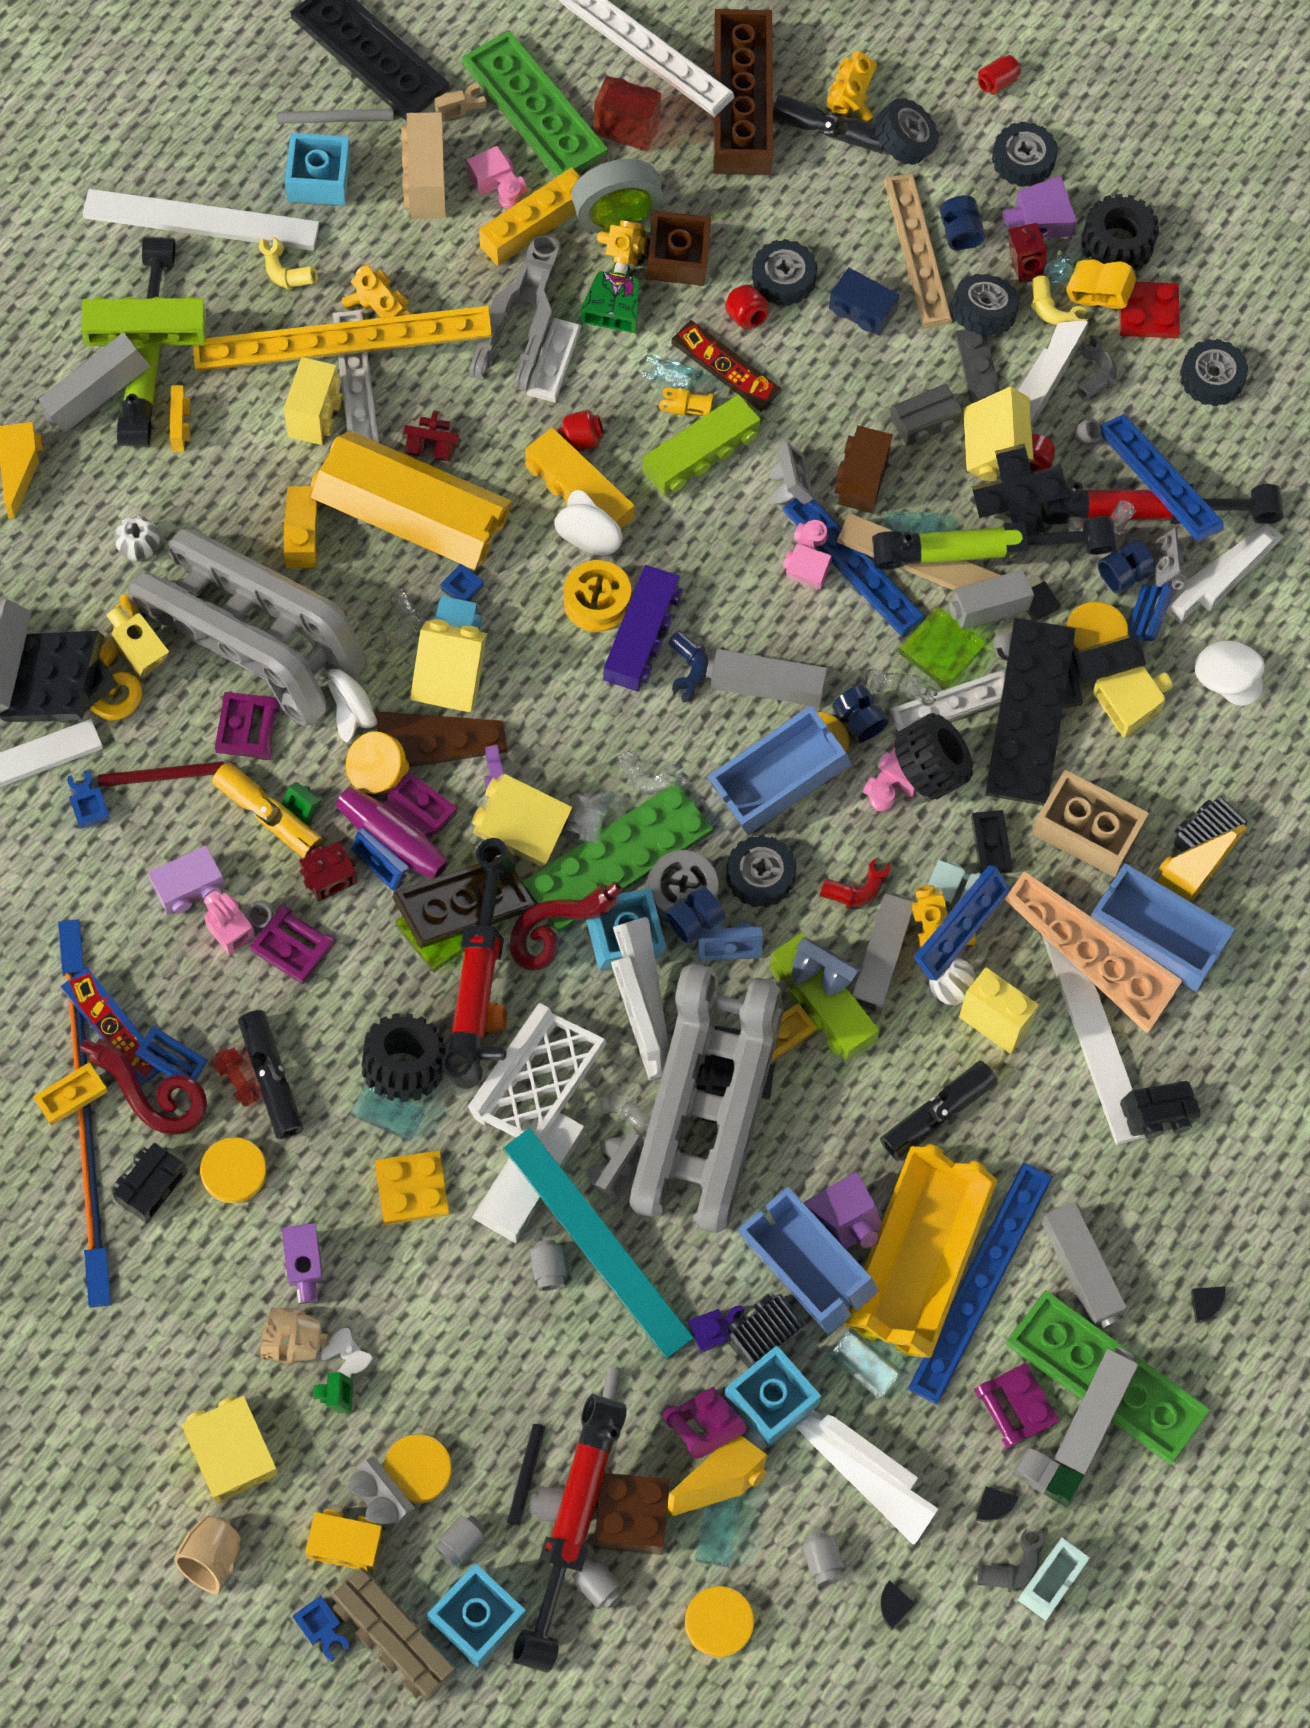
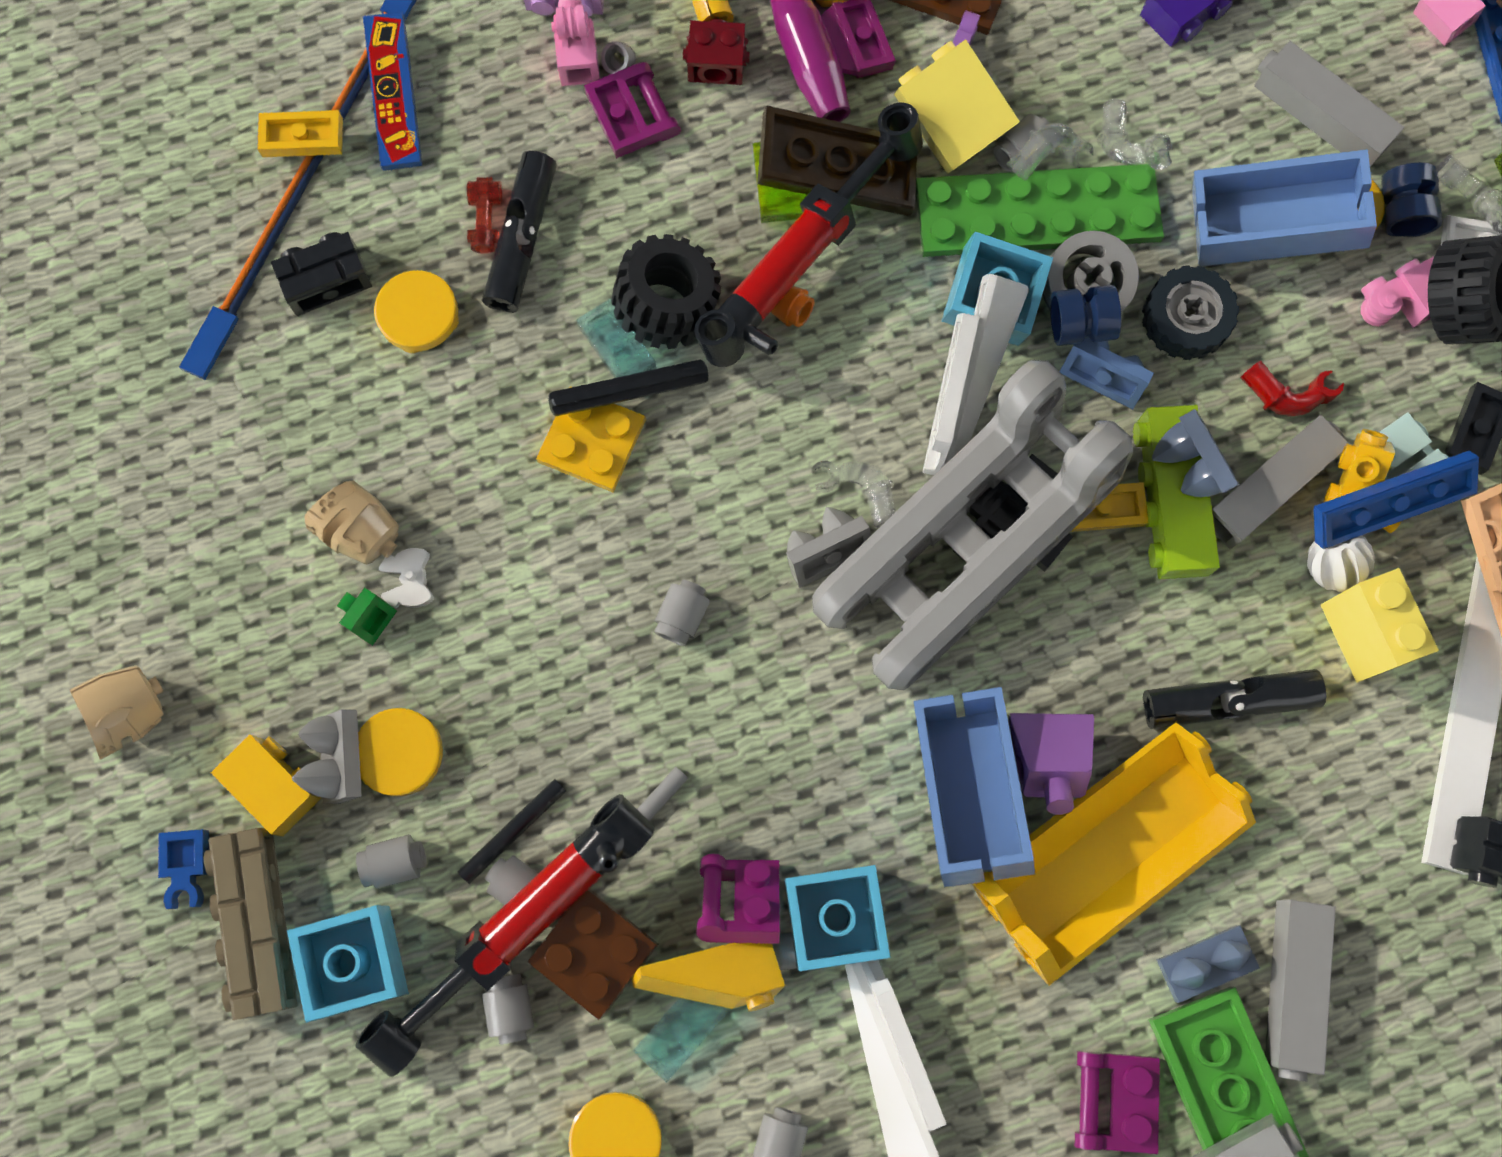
camera: 35 degrees right, 10 degrees up
(114, 1061) = (367, 130): dark red plant -> none
(175, 1045) = (445, 186): blue tile -> none
(229, 1448) = (214, 606): light yellow brick -> none
(300, 1246) = (423, 435): medium lavender torso -> none
(379, 858) = (779, 68): blue tile -> none
(418, 1137) = (628, 387): none -> black axle
(511, 1199) = (725, 499): white brick -> none
(519, 1056) = (784, 372): white fence -> none
(590, 907) = (967, 238): dark red plant -> none
(597, 1243) = (748, 621): teal tile -> none
(696, 658) = (1257, 46): dark blue piece -> none
(712, 1327) = (818, 794): dark purple plate -> none
(763, 1329) = (874, 832): black brick -> none
(865, 1363) = (969, 944): clear light blue plate -> none
(981, 1282) = (1165, 927): blue tile -> none
(1021, 1287) = (1207, 964): none -> sand blue tile
(1207, 1302) = (1424, 1120): black tile -> none

